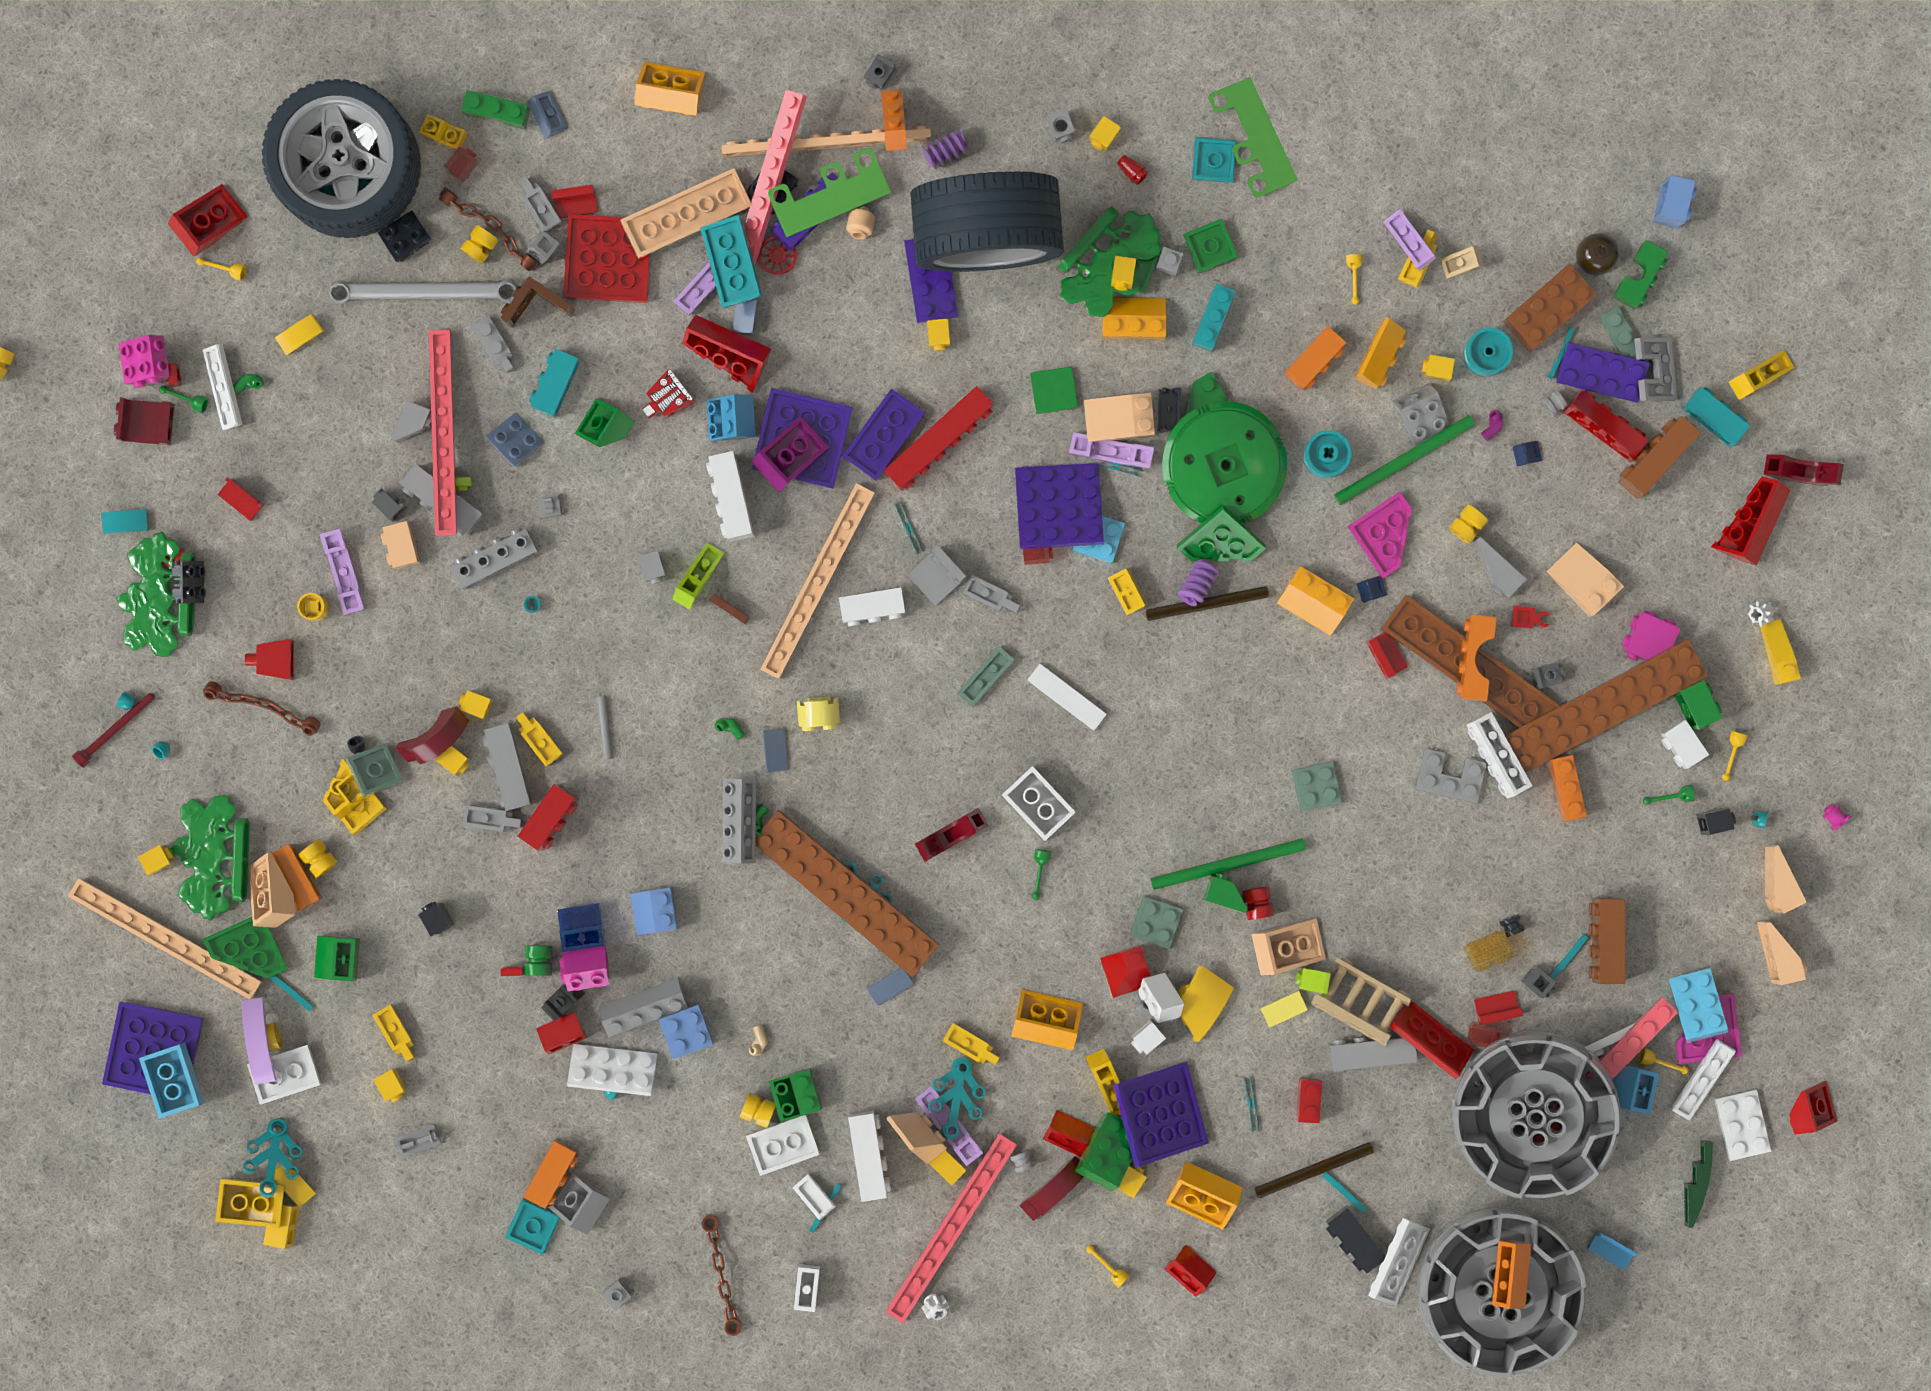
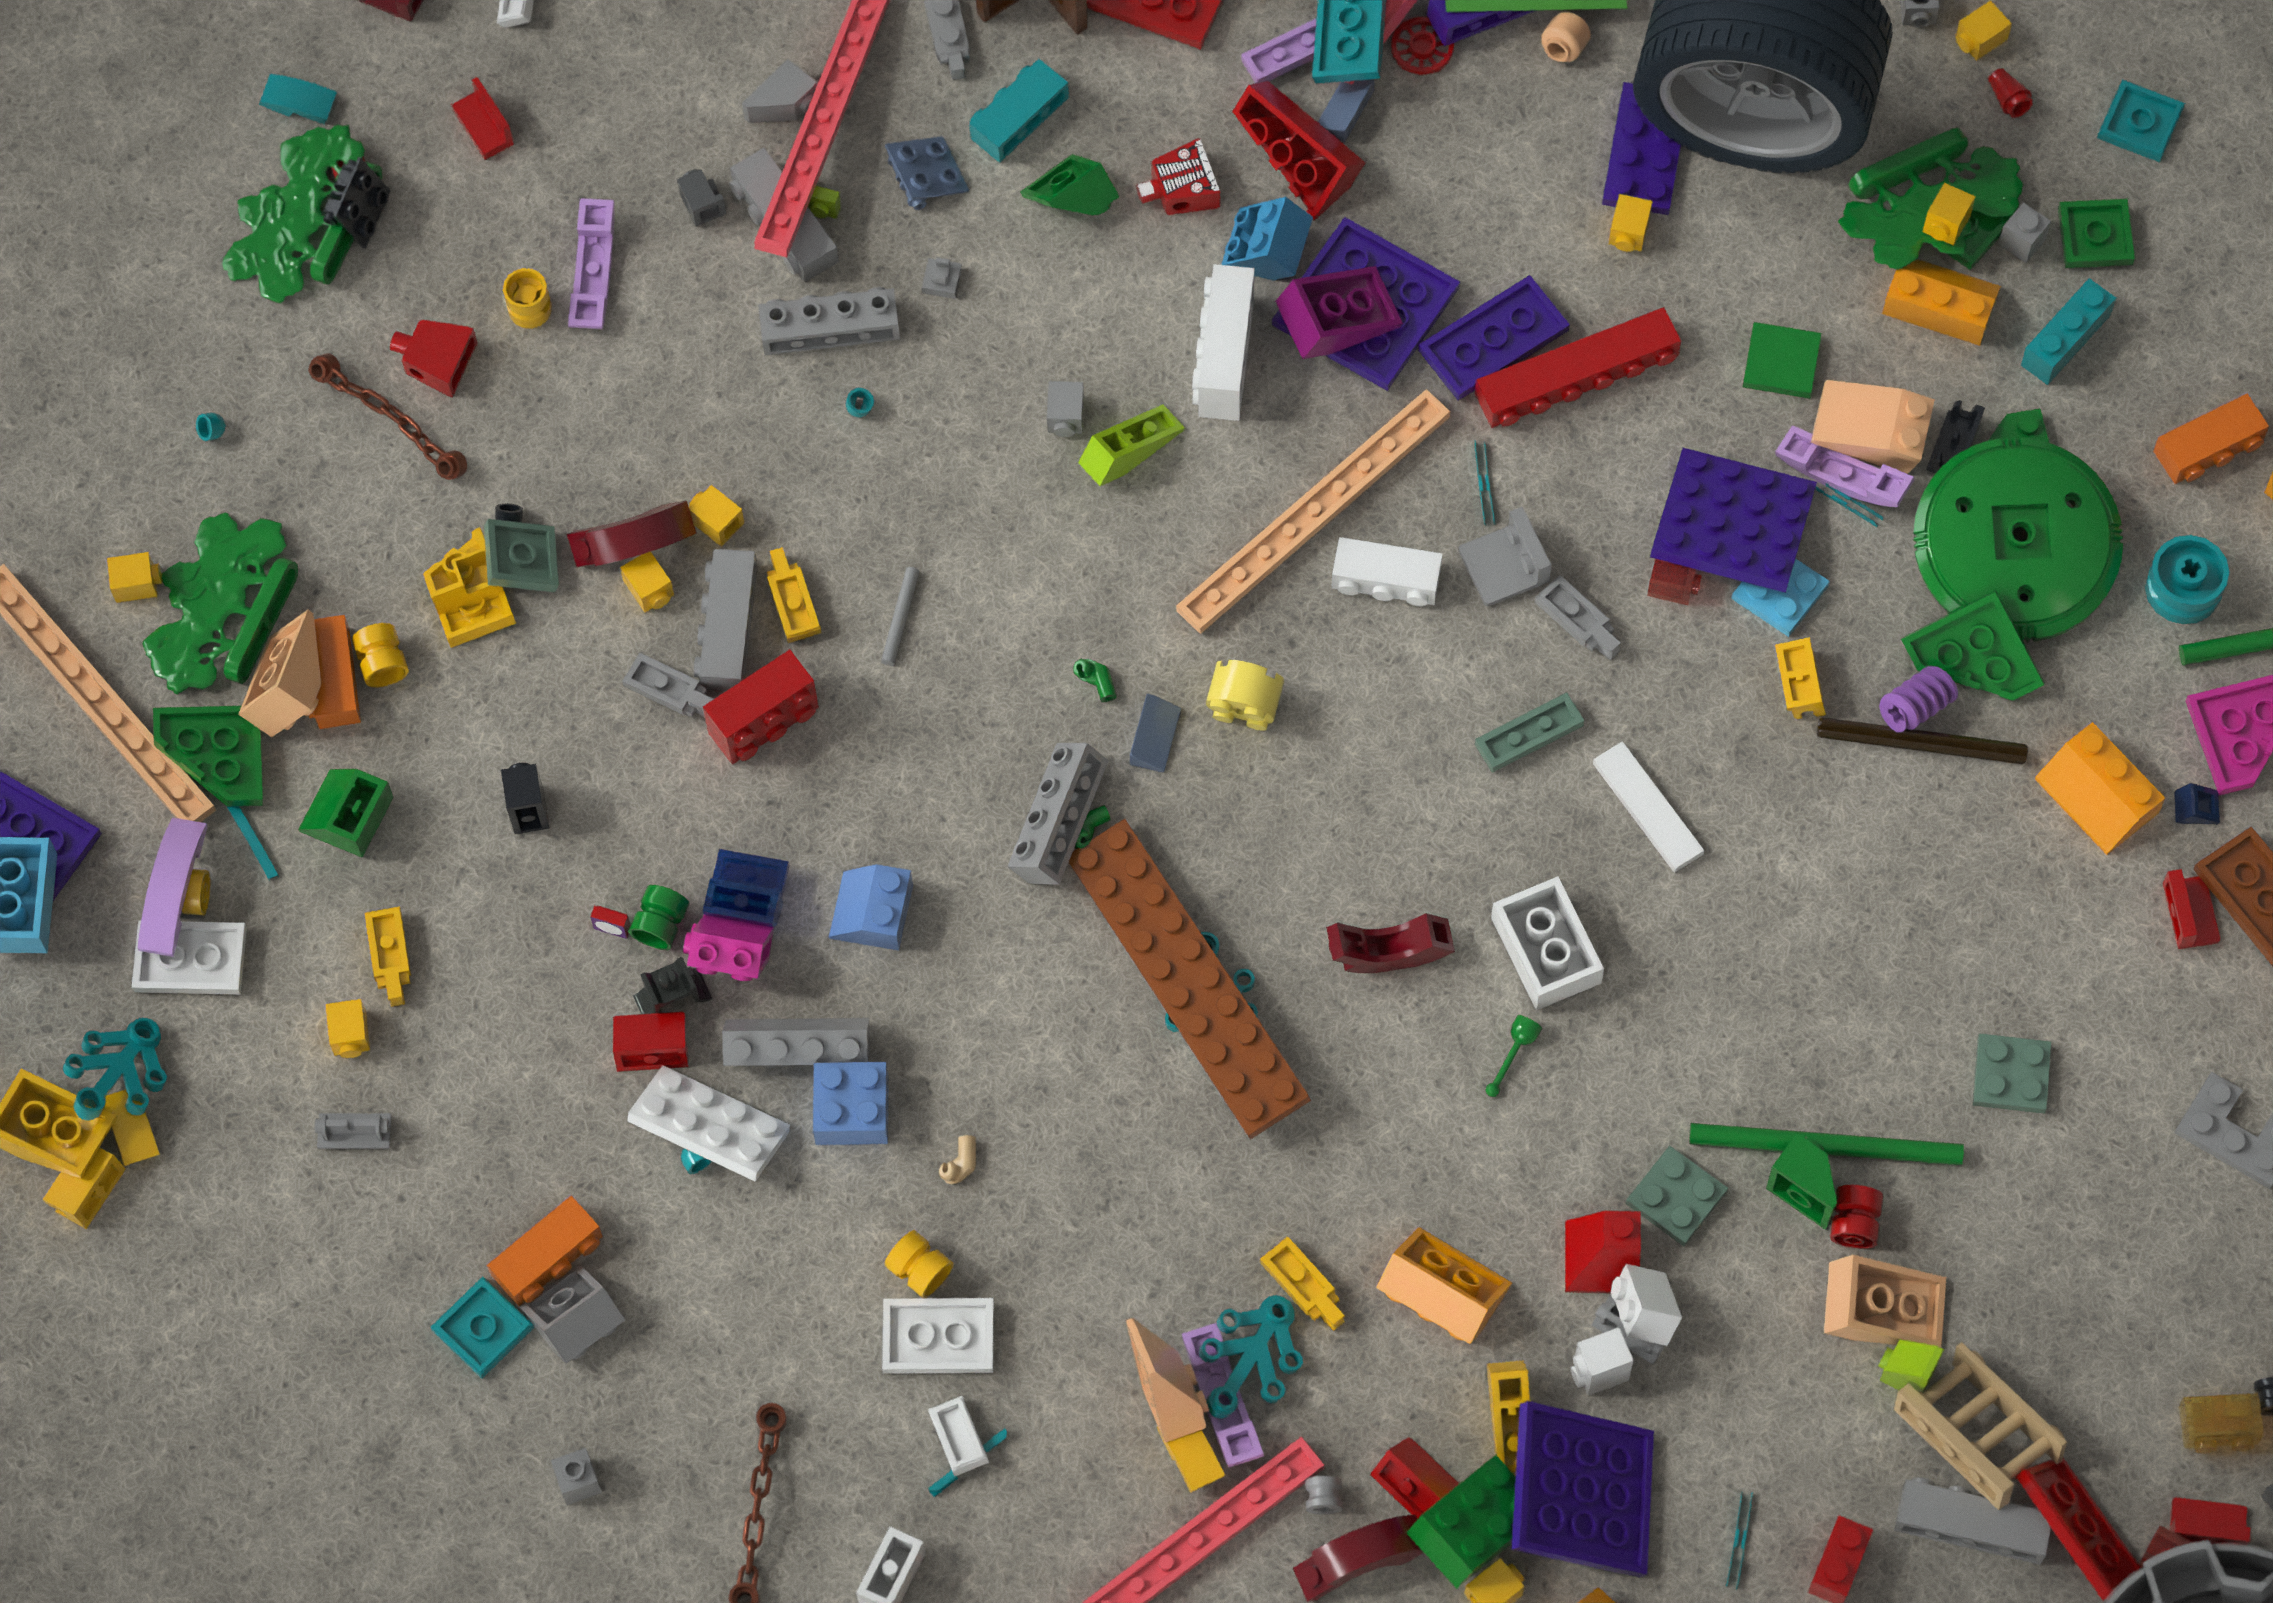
camera: 25 degrees right, 20 degrees down
(82, 757) = (91, 398): dark red piece -> none
(125, 701) = (188, 341): teal hinge -> none
(400, 545) = (694, 257): light nougat brick -> none
(729, 608) = (1161, 504): copper tile -> none
(795, 1095) = (989, 1259): green slope -> none
(867, 1155) = (1071, 1392): white brick -> none
(890, 986) = (1205, 1147): sand blue slope -> none
(1203, 1001) = (1714, 1340): yellow slope -> none
(1261, 136) = (2225, 109): bright green piece -> none
(1283, 1009) = (1844, 1403): light yellow tile -> none

